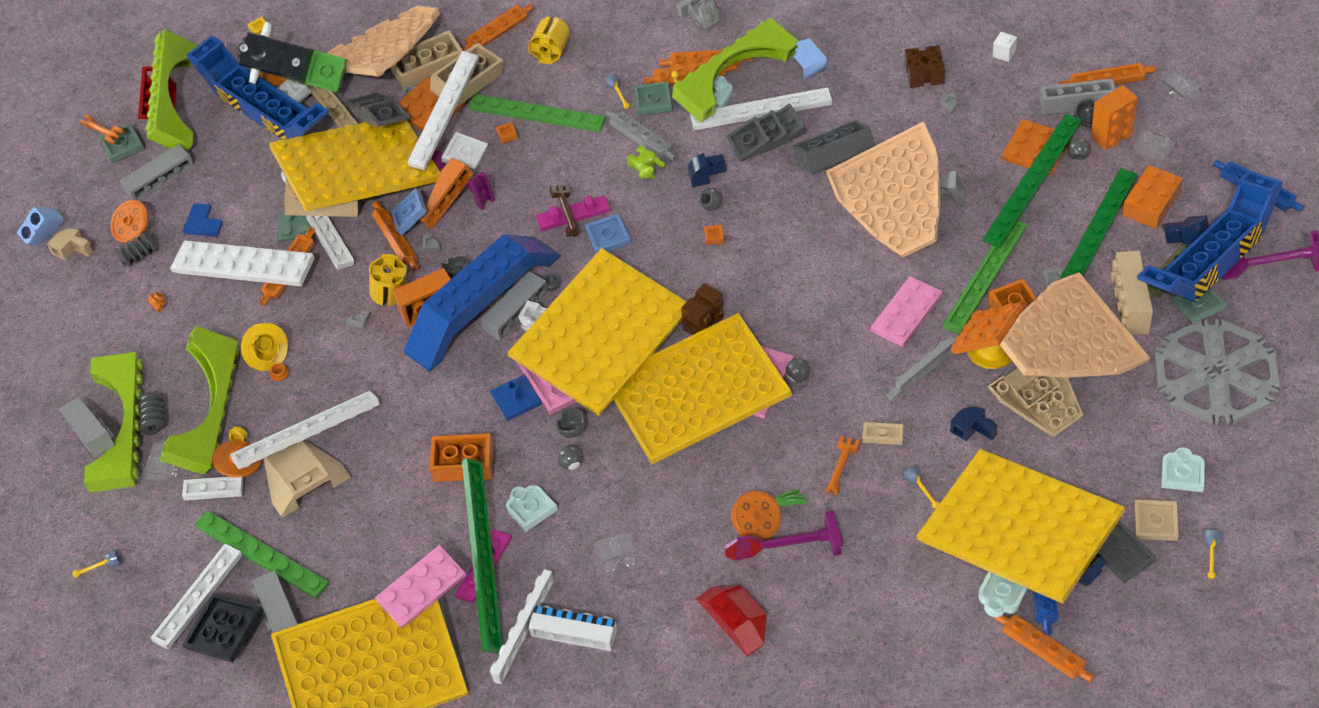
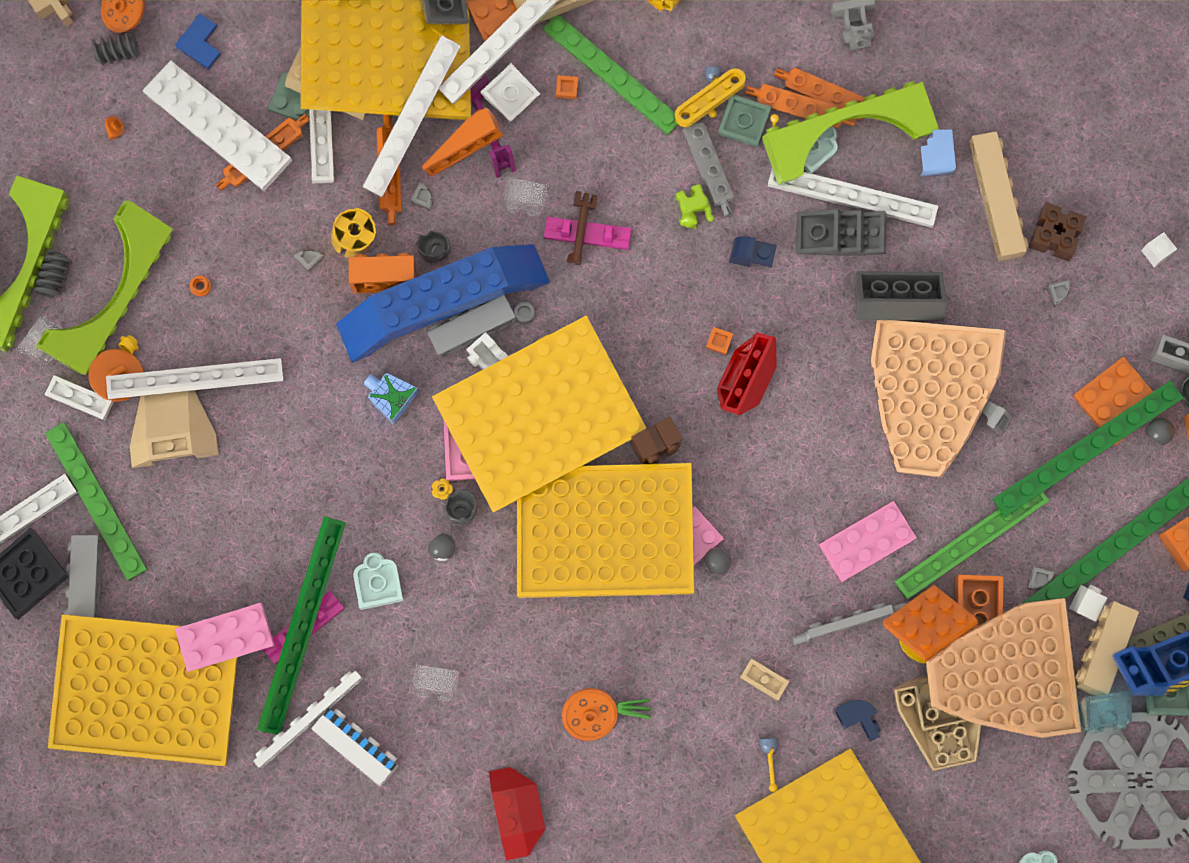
camera: 20 degrees right, 25 degrees up
(264, 346) = (194, 252): yellow hat -> none
(395, 187) = (411, 116): none -> white plate
(409, 211) = (420, 149): medium blue plate -> none
(450, 450) = (334, 493): orange brick -> none
(473, 376) = (390, 395): none -> torso
(511, 208) = (525, 197): none -> clear brick
(515, 397) = (422, 442): blue tile -> none
(548, 425) = (448, 489): none -> yellow plate
(607, 233) = (609, 282): medium blue plate -> none
(619, 92) = (710, 97): none -> yellow plate
(710, 199) = (737, 294): dark grey piece -> none
(748, 240) = (748, 374): none -> red wedge
(749, 546) = (650, 770): magenta piece -> none
(846, 449) = (721, 676): orange hinge -> none
(868, 65) = (997, 196): none -> tan brick
(1099, 272) = (1088, 602): none -> white brick
(1158, 328) = (1106, 711): none -> clear light blue slope

